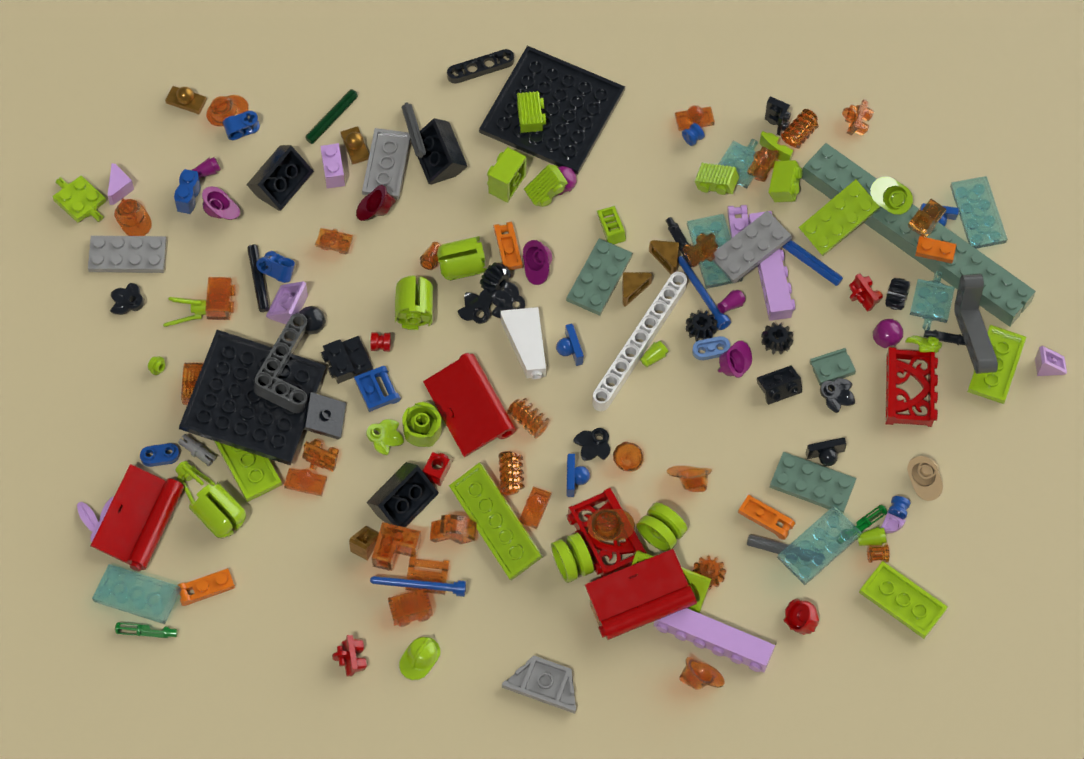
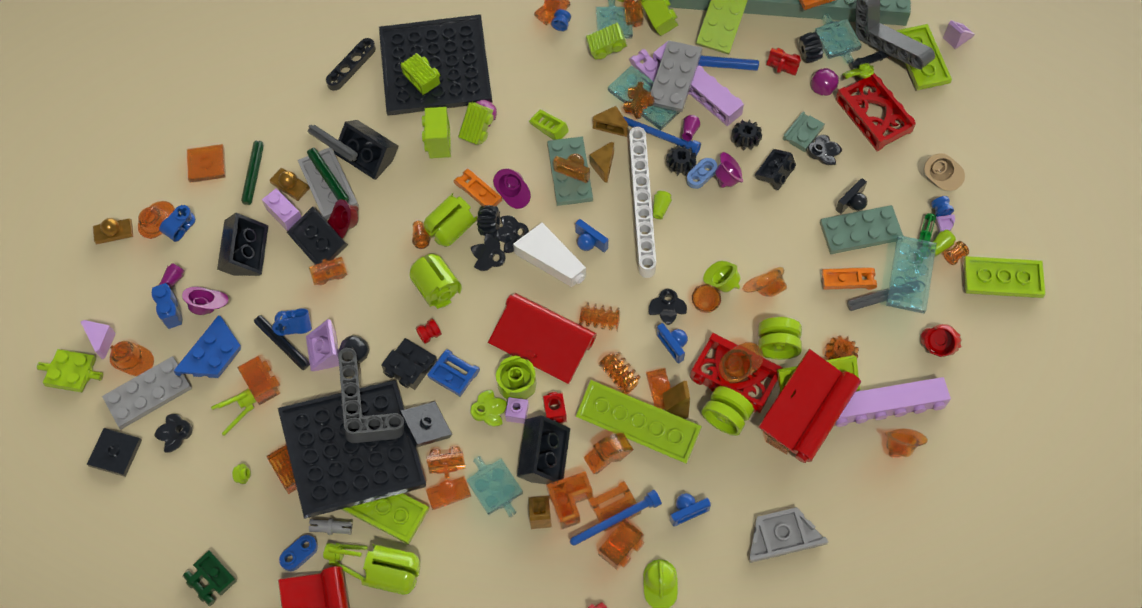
camera: 30 degrees left, 0 degrees up
(72, 287) = (114, 452): none -> black plate
(87, 430) = (215, 574): none -> dark green plate
(197, 251) = (211, 352): none -> blue wing
(299, 85) = (206, 163): none -> clear orange tile
(344, 499) = (494, 486): none -> clear light blue plate
(345, 206) = (316, 237): none -> black tile
(389, 151) = (327, 174): none -> dark green axle
(405, 455) = (517, 416): none -> lavender plate
(483, 615) = (688, 509): none -> blue tile
(538, 524) = (678, 400): none -> pearl gold slope
(599, 274) = (572, 167): none -> clear orange tile
(657, 447) = (723, 276): none -> lime piece
(677, 235) = (609, 103): black piece -> none

